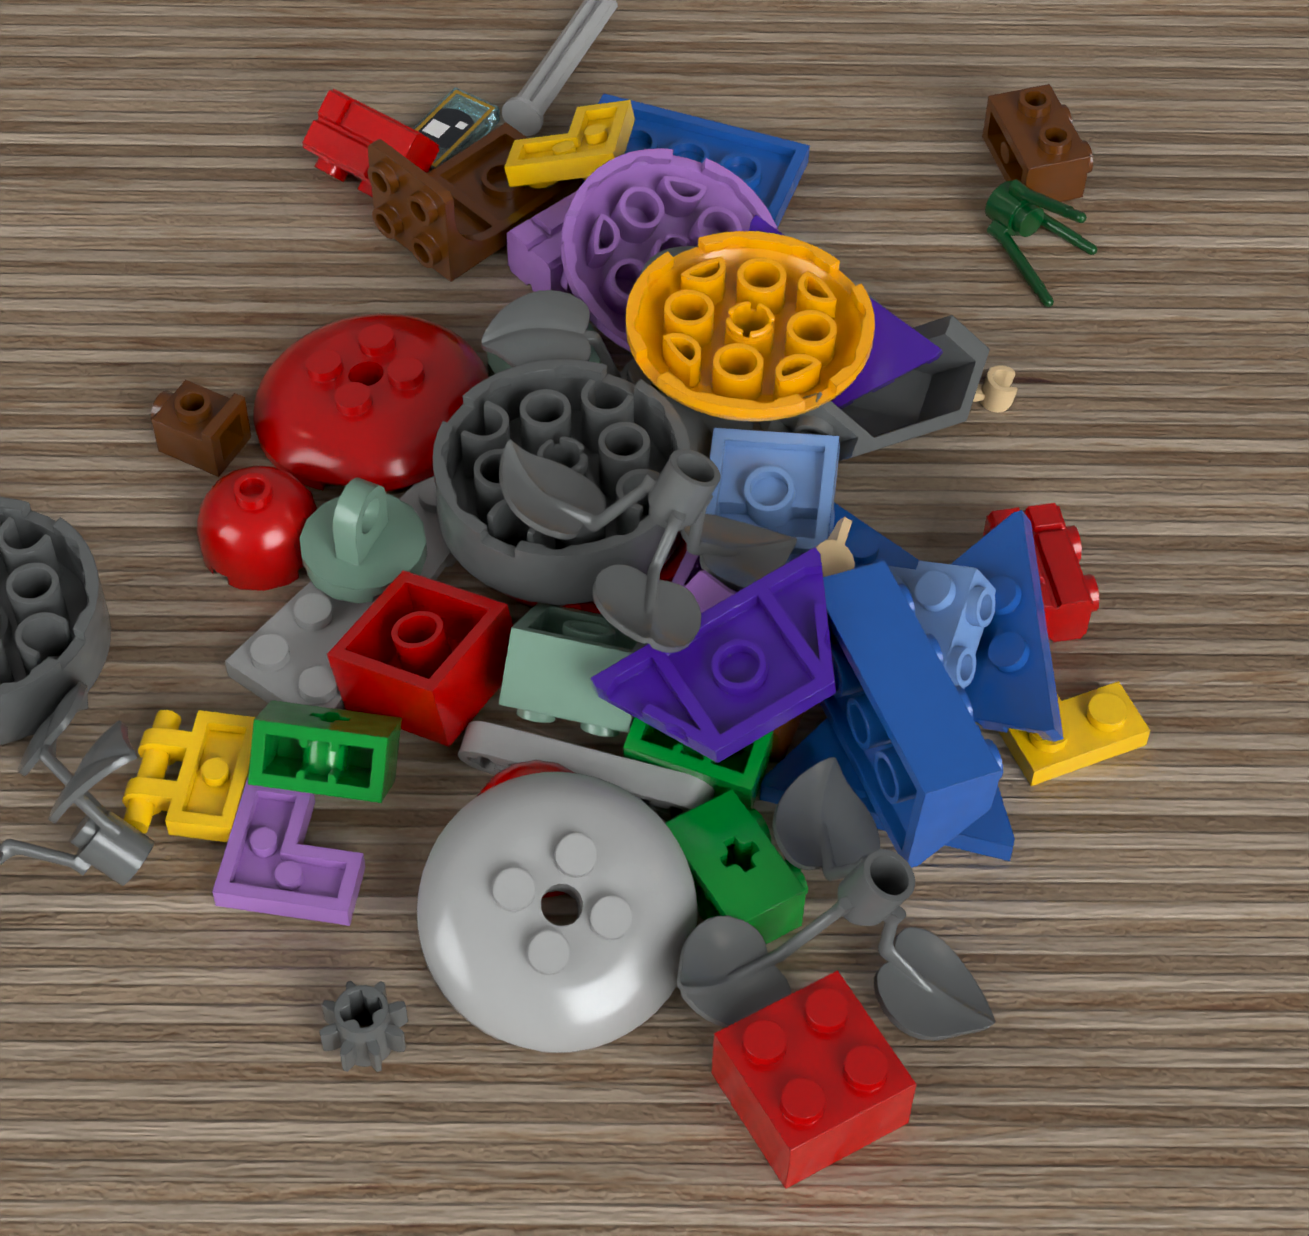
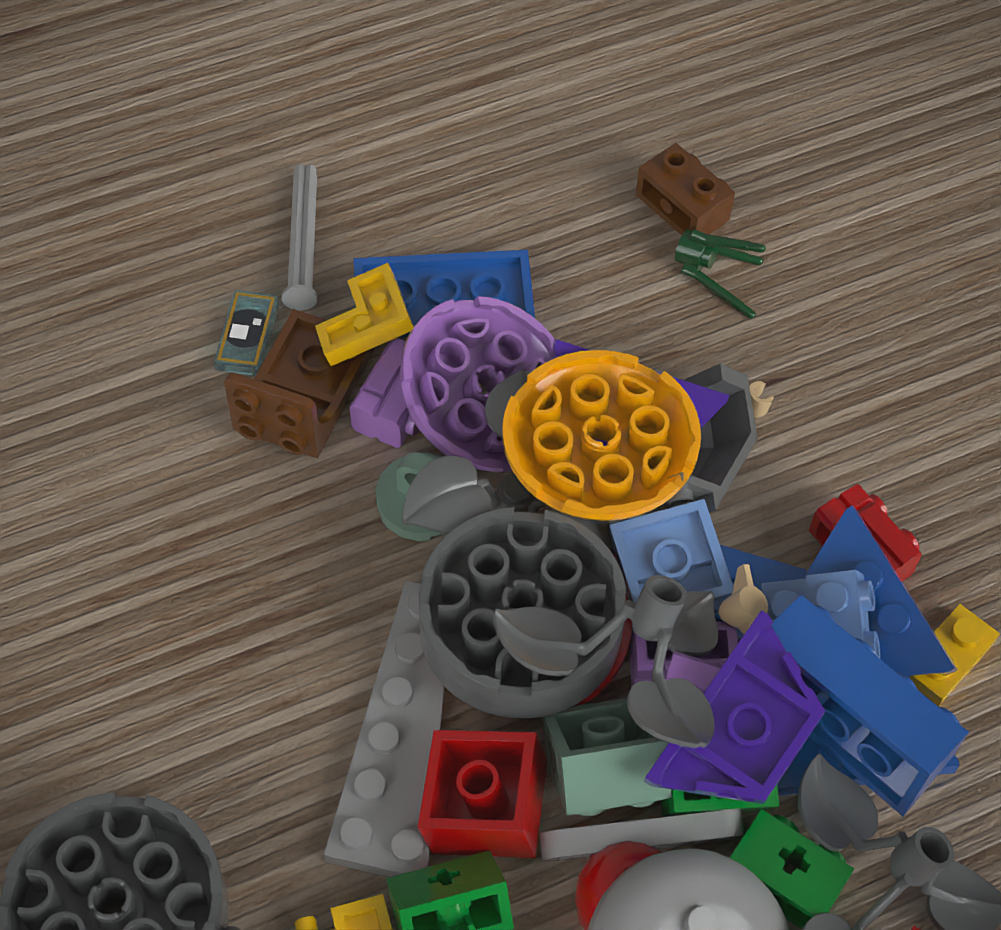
camera: 25 degrees left, 5 degrees up
(200, 426) = (204, 670): reddish brown brick -> none
(254, 527) = (288, 730): red cylinder -> none
(348, 127) = (196, 368): red brick -> none
(362, 542) = (384, 717): sand green tile -> none
(364, 400) = (324, 622): red brick -> none

